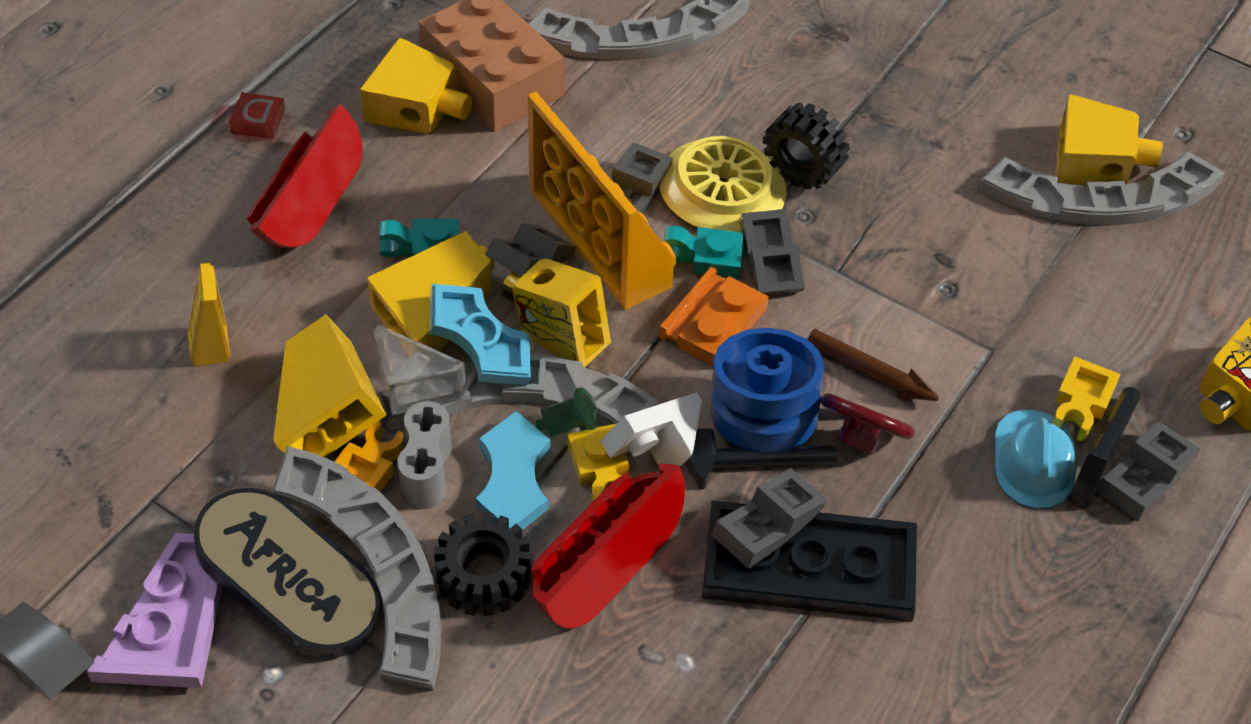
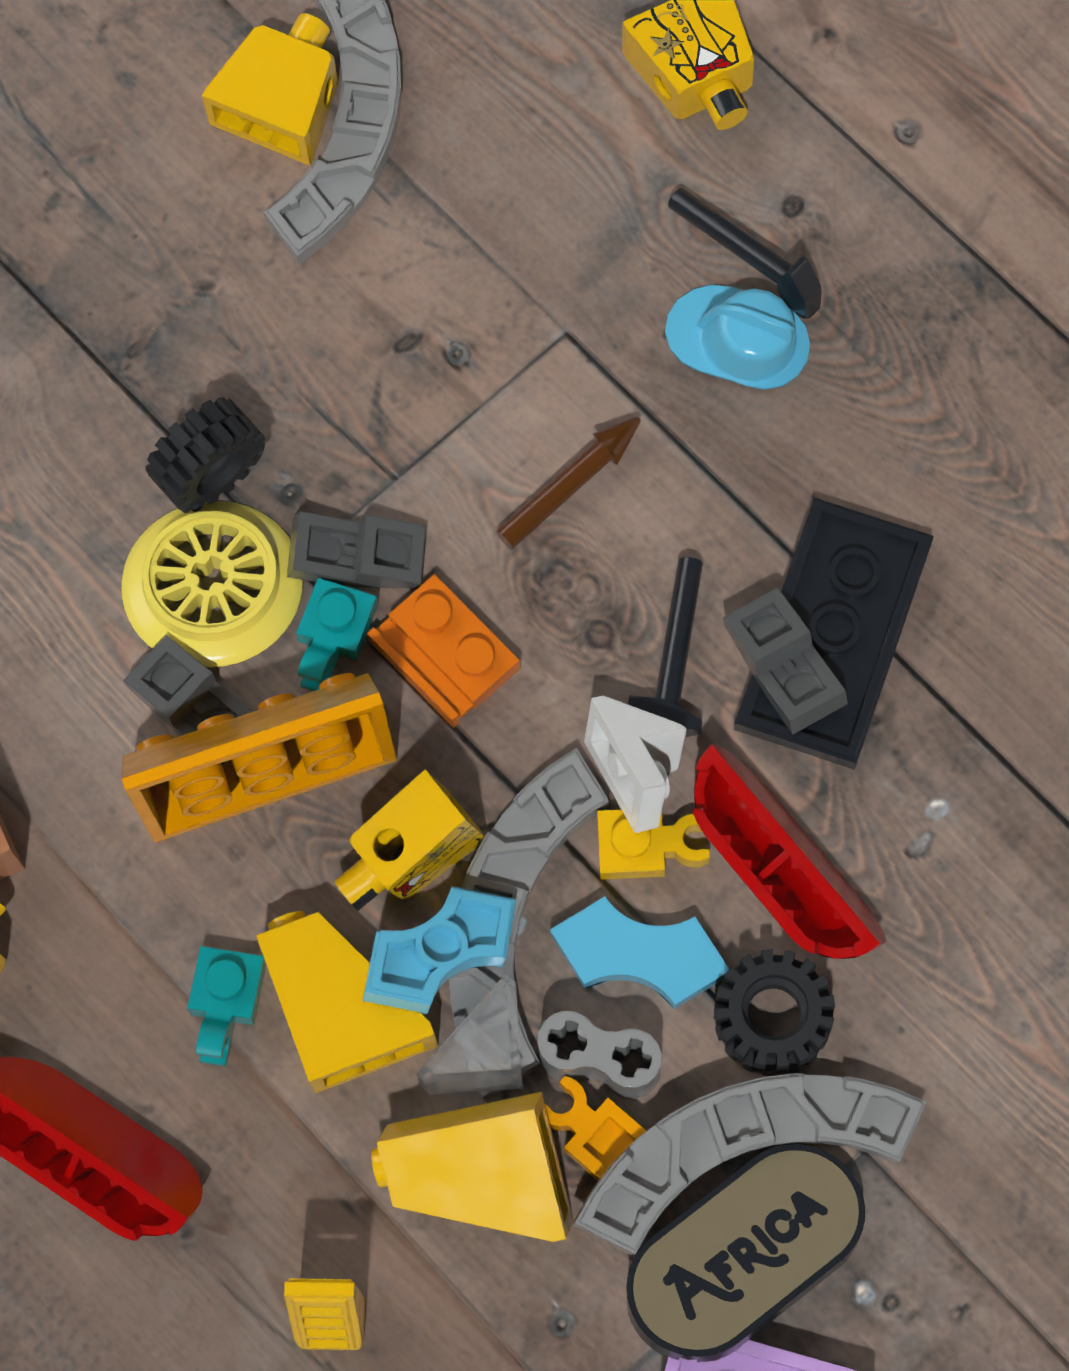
camera: 70 degrees left, 20 degrees up
(528, 247) = (293, 857): dark grey slope -> none
(570, 414) = (575, 864): clear green piece -> none
(766, 389) = (605, 612): blue wheel -> none
(863, 424) = (672, 516): dark red piece -> none
(1084, 395) = (672, 246): yellow plate -> none
(1148, 470) = (786, 215): dark grey slope -> none

